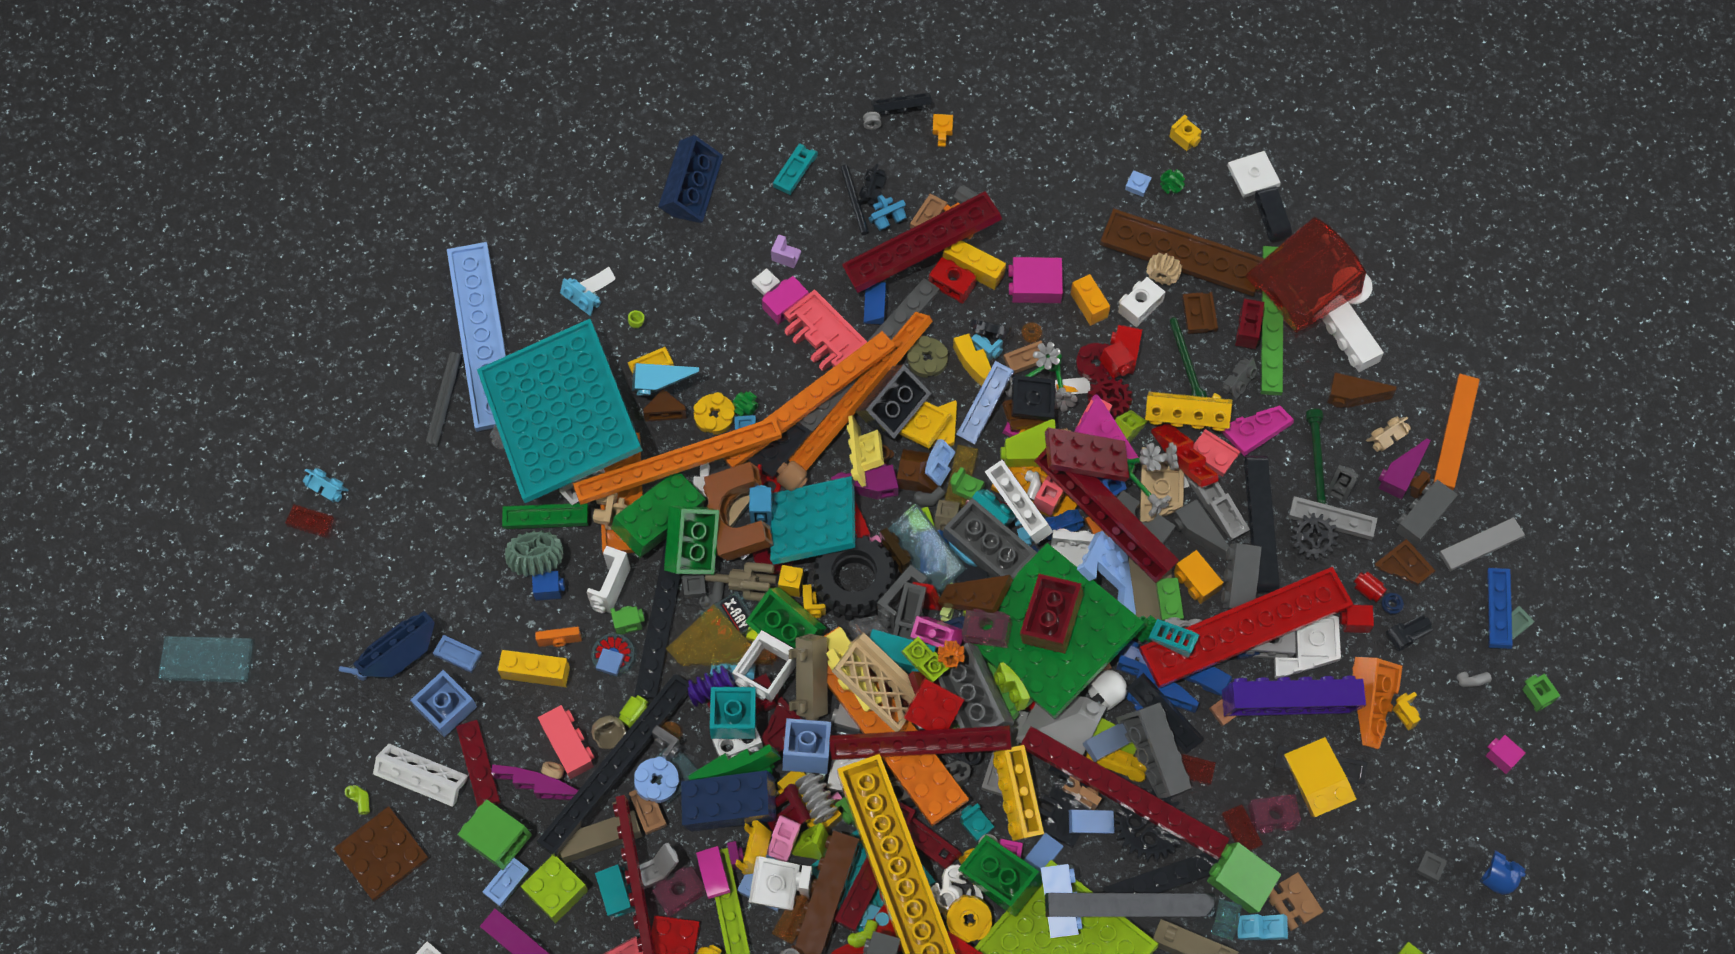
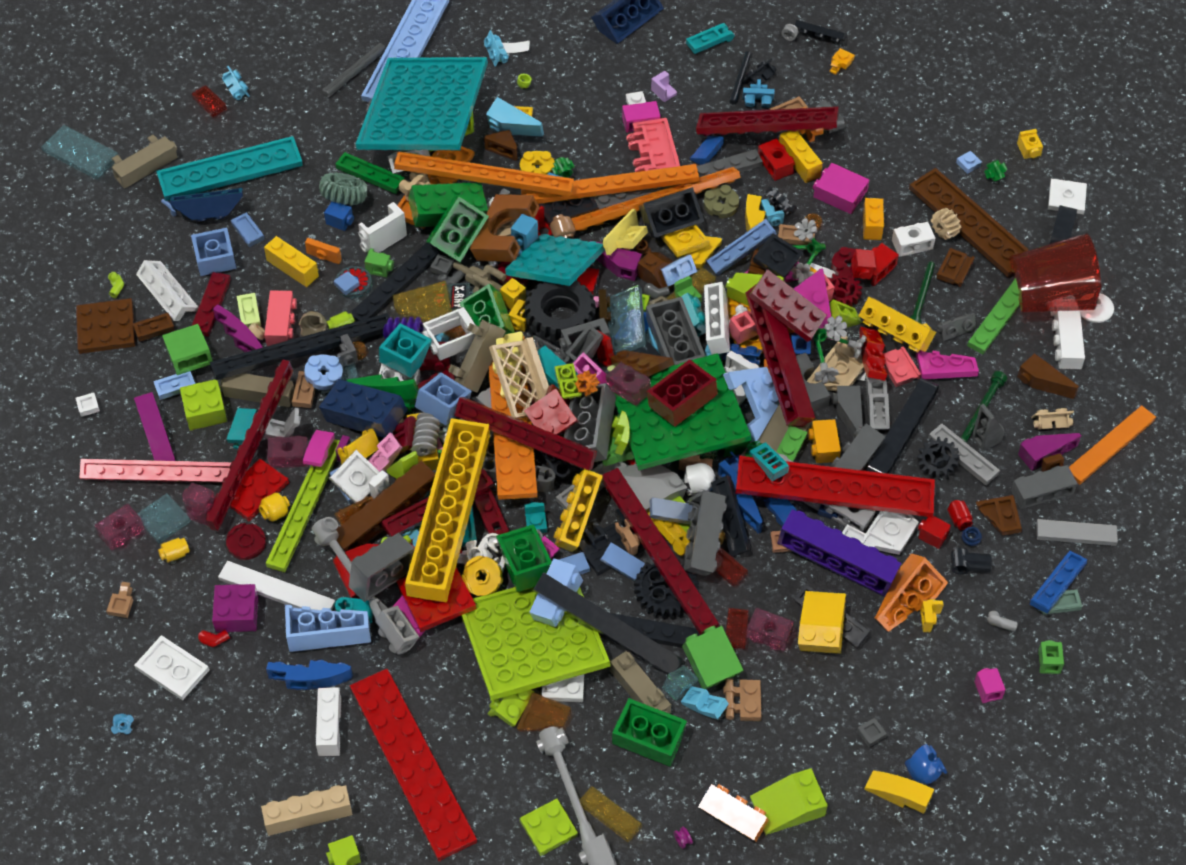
camera: 30 degrees right, 10 degrees down
(289, 634) = (144, 161): none -> dark tan brick
(388, 592) = (229, 168): none -> teal plate
(436, 826) = (153, 327): none -> reddish brown plate
(526, 750) = (248, 309): none -> yellowish green plate
(1249, 323) = (988, 290): dark red brick -> none
(1493, 912) = (899, 790): none -> yellow slope

